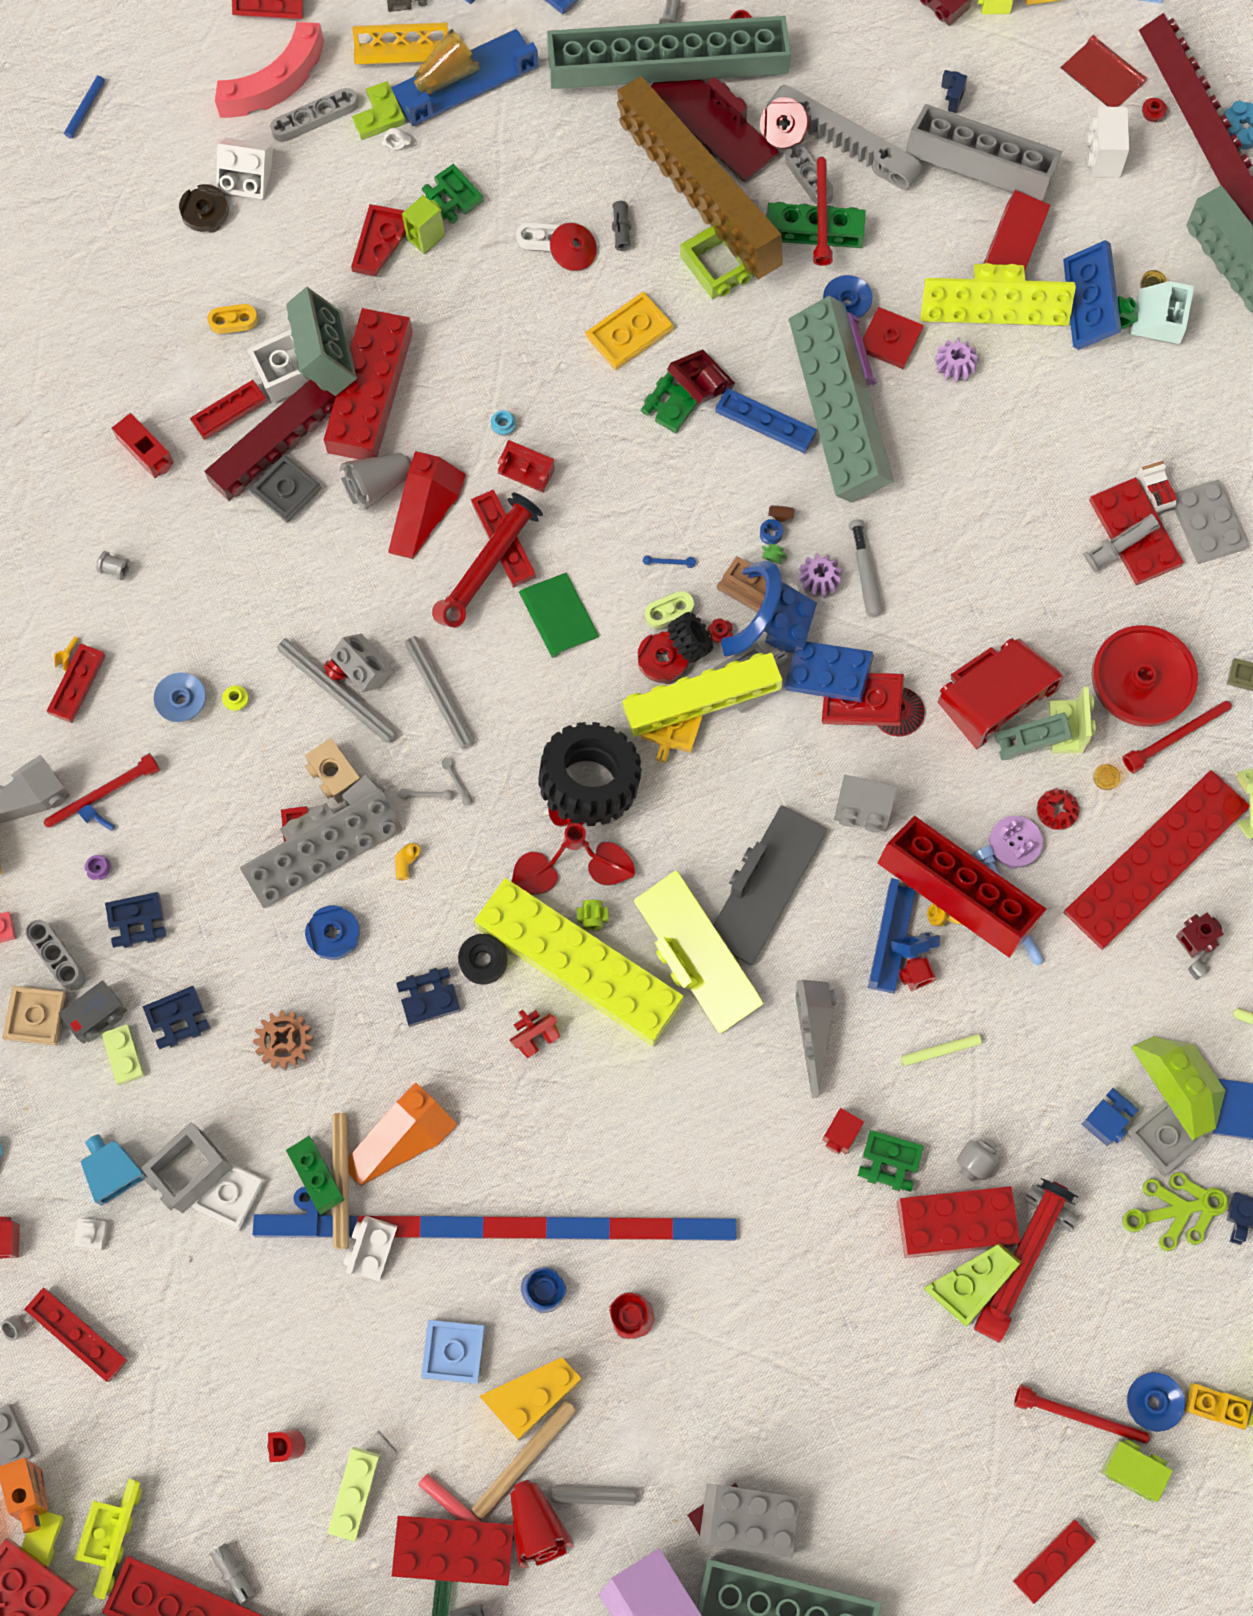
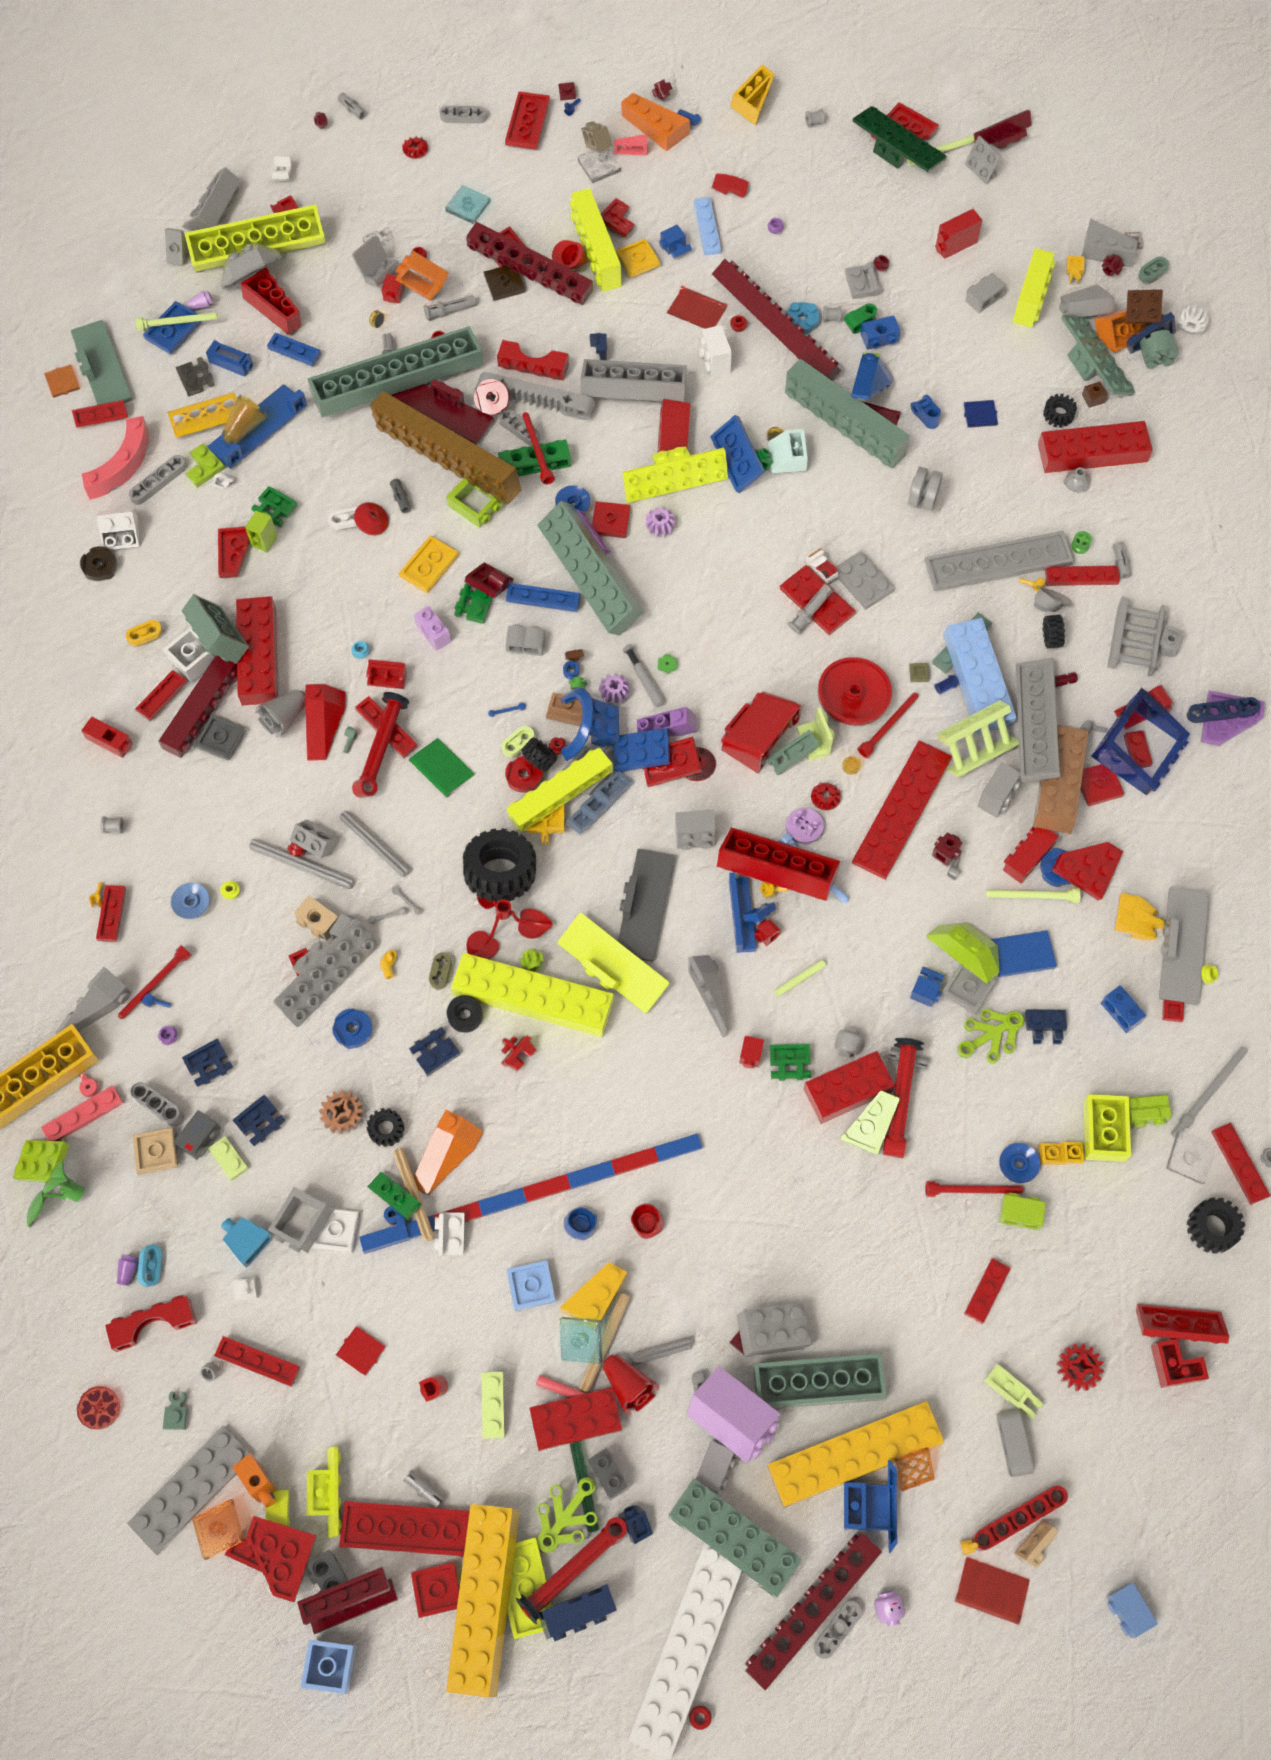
camera: 20 degrees left, 5 degrees down
(210, 1363) = (360, 1351): none -> red piece
(325, 1064) = (385, 1115): none -> black tyre
(456, 535) = (352, 735): none -> sand green hand
(474, 894) = (435, 970): none -> olive beam
(493, 1448) = (581, 1340): none -> clear light blue plate
(605, 421) = (432, 628): none -> lavender brick
(629, 1549) = (697, 1378): none -> light grey hand
(723, 472) = (525, 640): none -> light grey brick
(750, 726) = (599, 802): none -> sand blue slope
(879, 100) = (551, 365): none -> red arch
(888, 645) = (677, 721): none -> medium lavender slope
(905, 555) = (667, 659): none -> bright green plant

